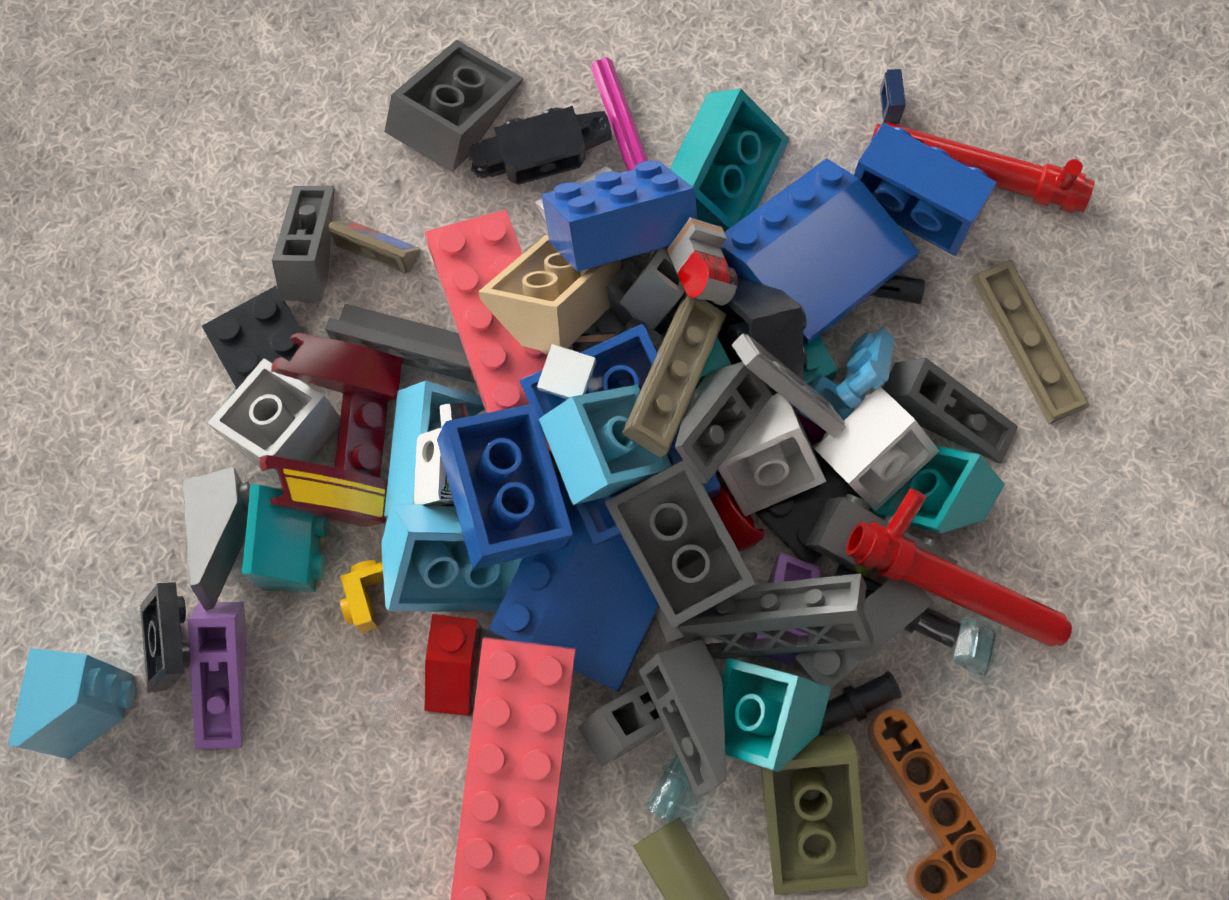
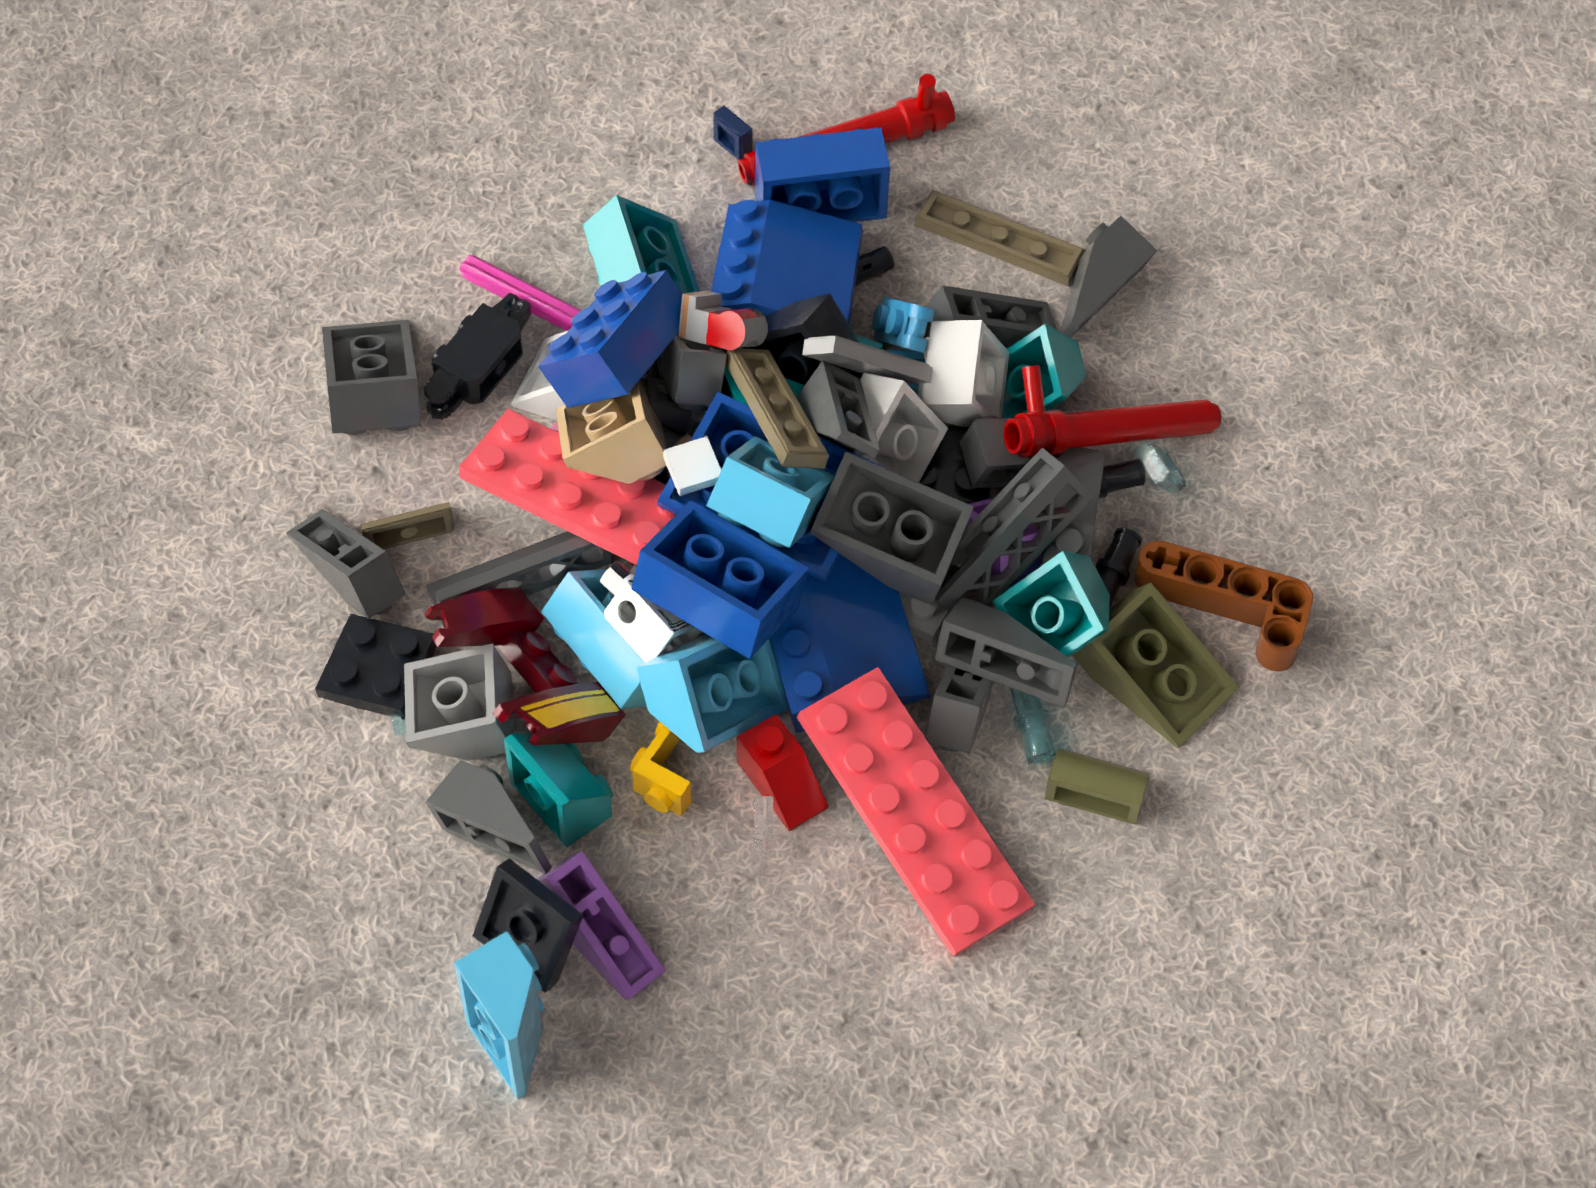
camera: 45 degrees left, 15 degrees down
(1085, 437) = (1103, 270): none -> dark grey slope

